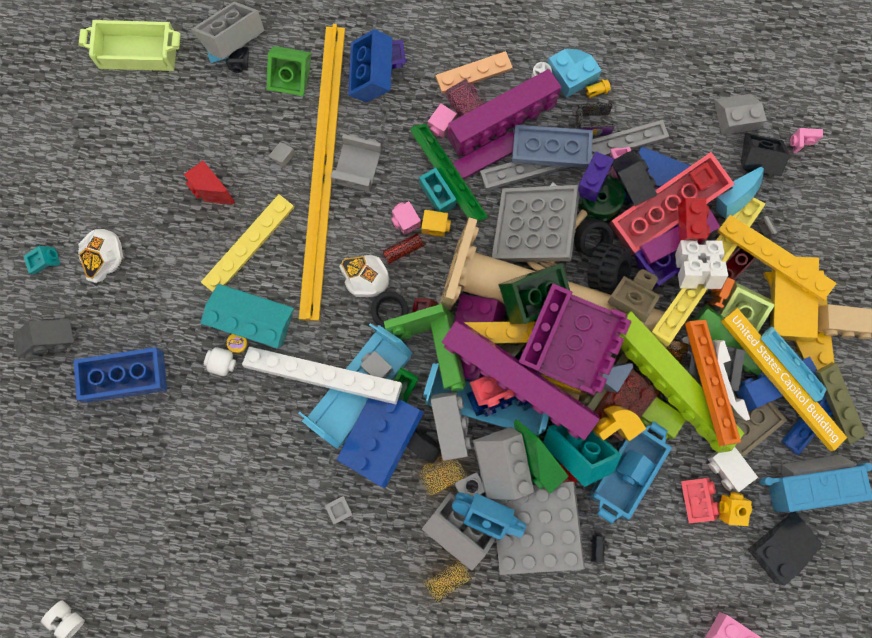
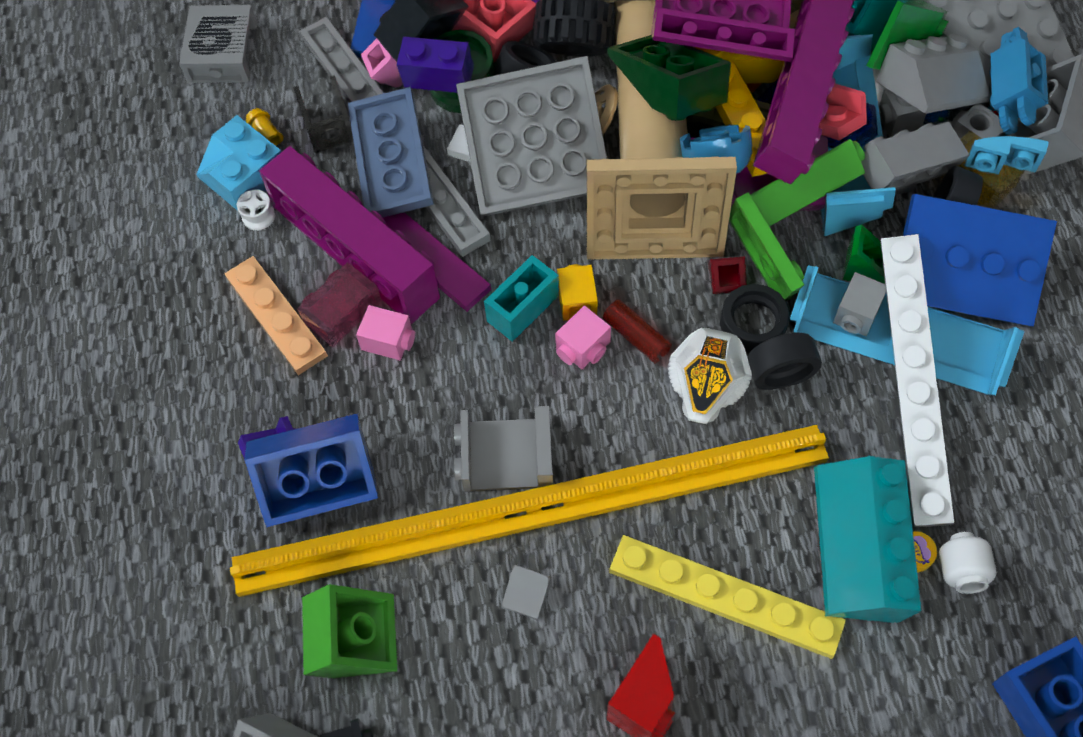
camera: 100 degrees left, 15 degrees down
(354, 312) = (784, 361): none -> black tyre
(439, 473) = (1018, 152): none -> medium azure slope
(448, 172) = (471, 299): green tile -> none
(477, 304) = (720, 142): none -> dark azure cylinder
(667, 72) = (217, 43): none -> light grey panel

